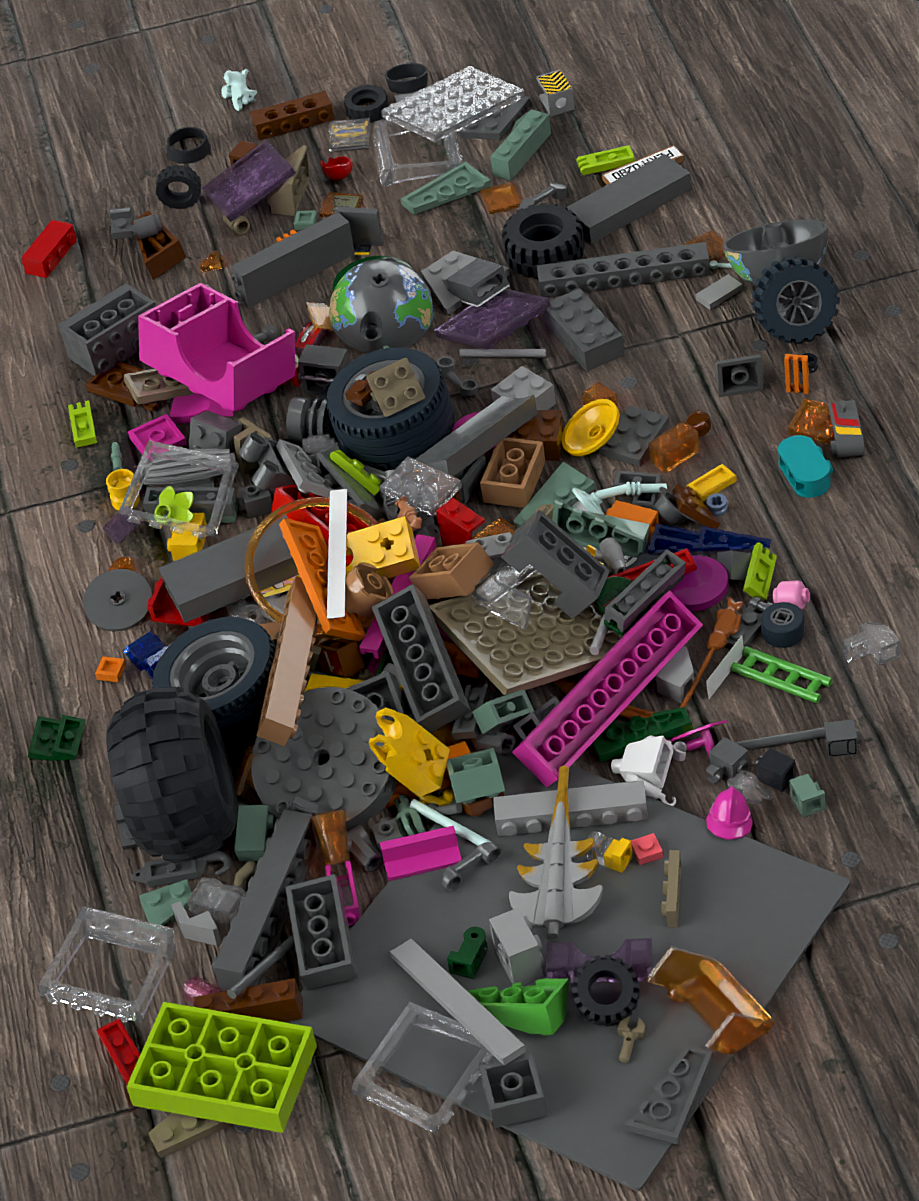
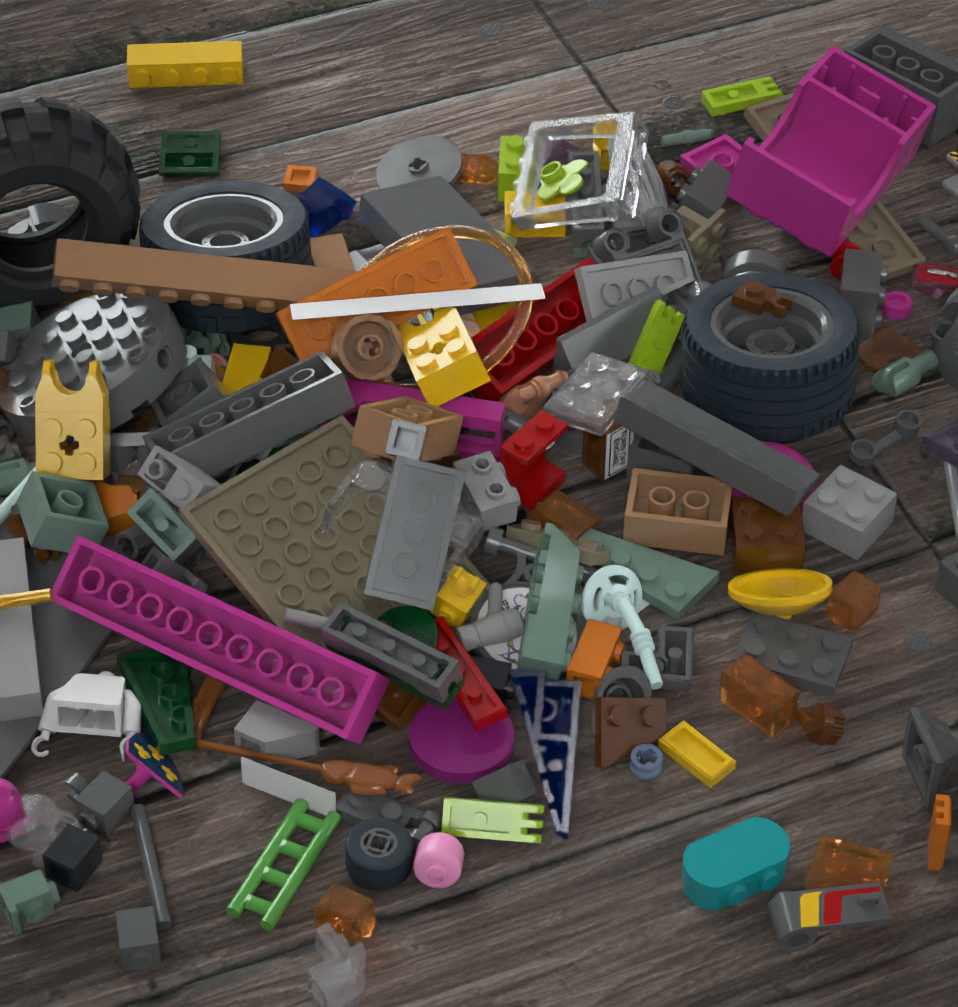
camera: 75 degrees right, 0 degrees up
(136, 543) = (510, 151): none -> lime brick
(395, 387) = (745, 317): dark tan bracket -> none
(478, 691) = (176, 477): none -> light grey slope
(495, 545) = (406, 439): none -> brick
(829, 640) = (346, 913): none -> clear orange brick

